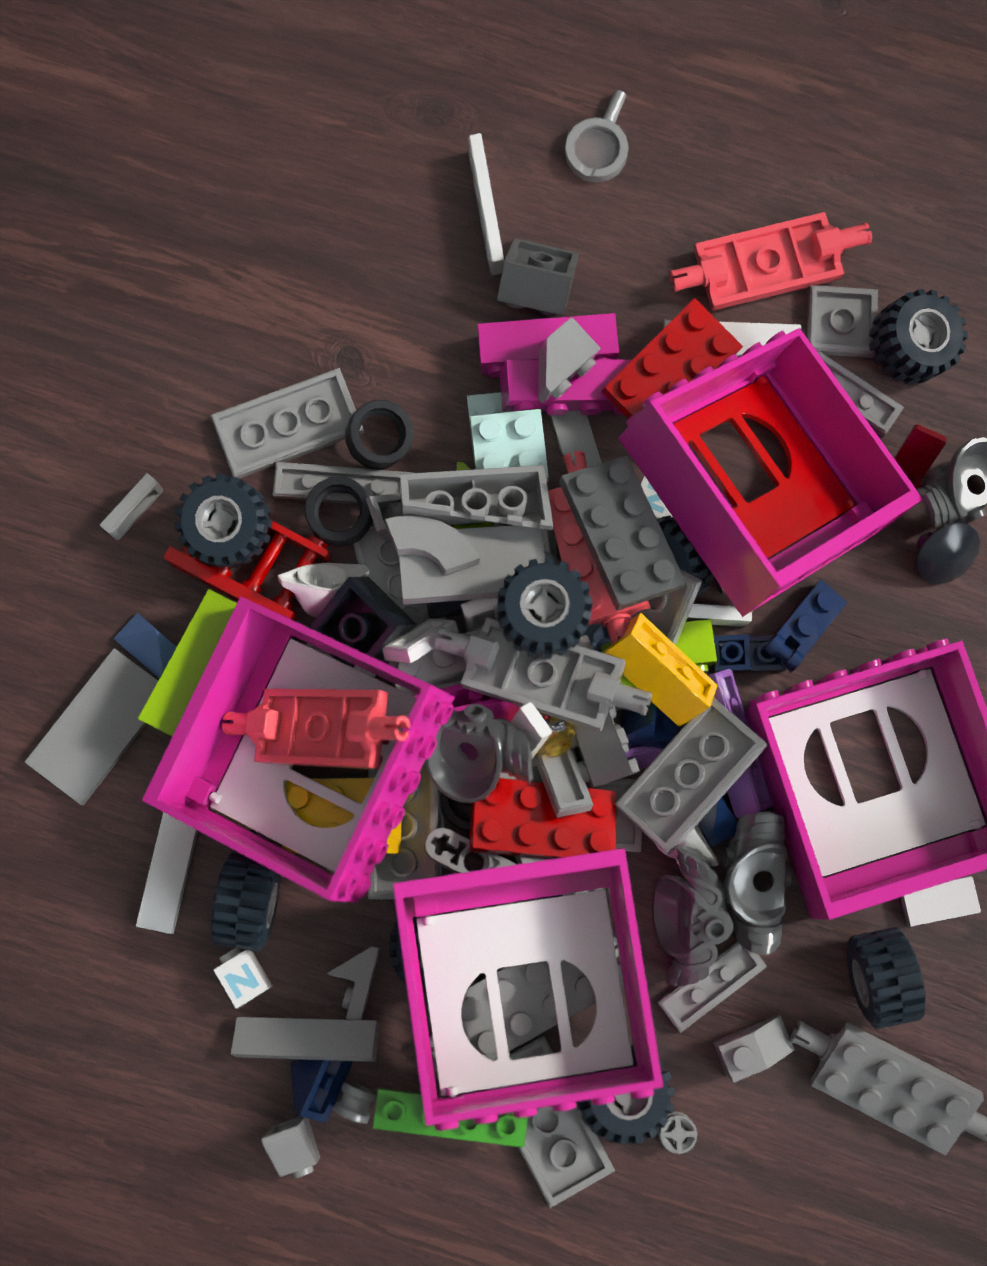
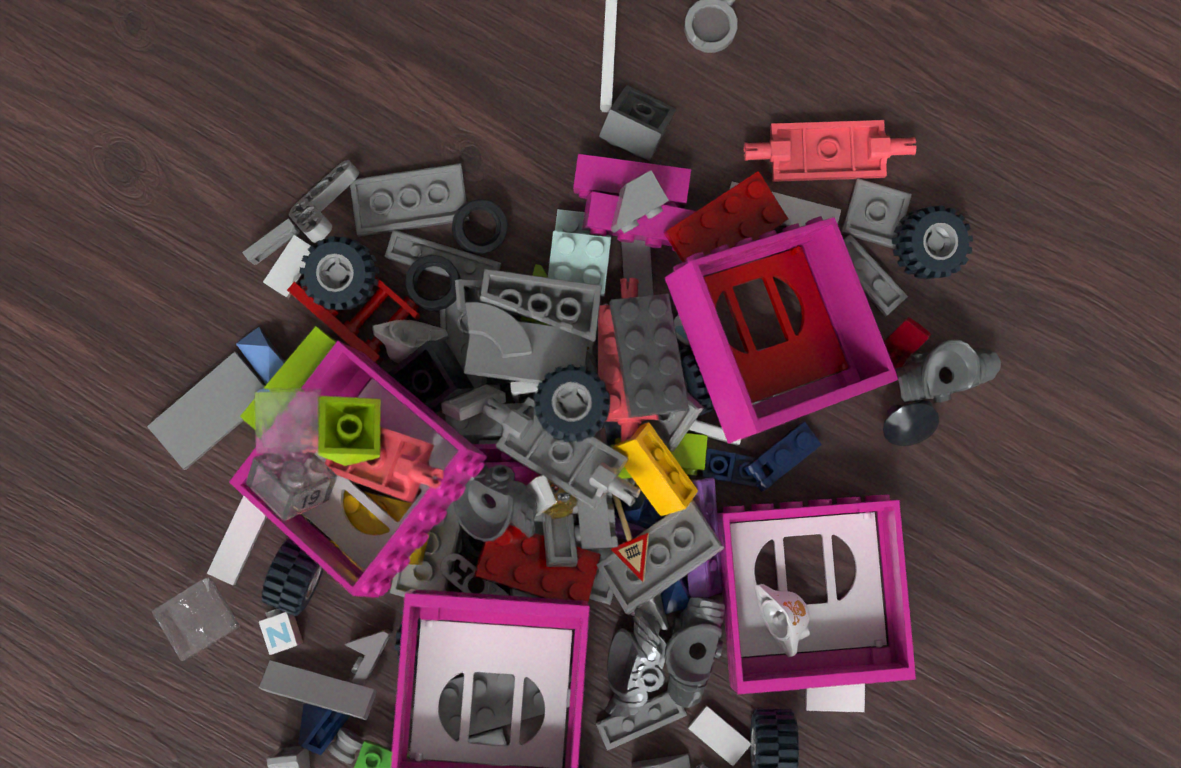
camera: 15 degrees right, 5 degrees up
(133, 985) = (195, 619): none -> clear brick
(158, 533) = (288, 267): none -> white tile
(172, 461) = (307, 210): none -> light grey beam
(201, 704) = (287, 420): none -> clear brick
(218, 780) = (291, 482): none -> clear brick
(278, 700) = (349, 429): none -> lime slope
(657, 776) = (633, 551): none -> piece
(812, 982) = (719, 735): none -> white tile
(856, 816) = (784, 616): none -> white hat

